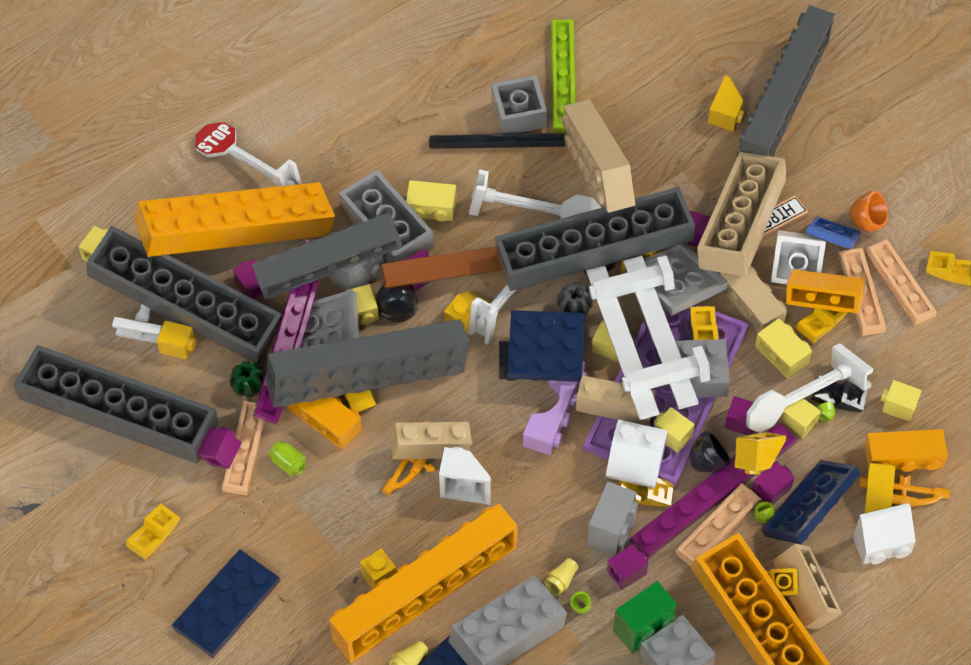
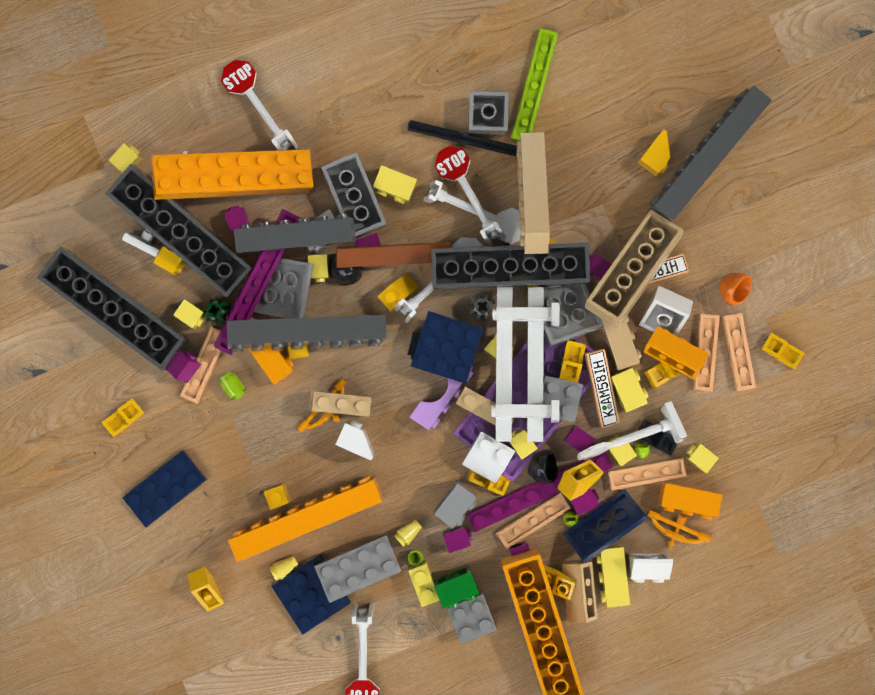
camera: 15 degrees right, 30 degrees up
(215, 391) = (190, 314): none -> light yellow brick
(500, 169) = (453, 165): none -> white piece
(601, 629) = (423, 583): none -> light yellow brick
(750, 350) = (602, 388): none -> tile
(833, 232) = (700, 300): blue tile -> none
(840, 438) = (646, 473): none -> light nougat tile
(843, 562) = (613, 576): none -> light yellow brick
(879, 487) = (659, 527): yellow slope -> none

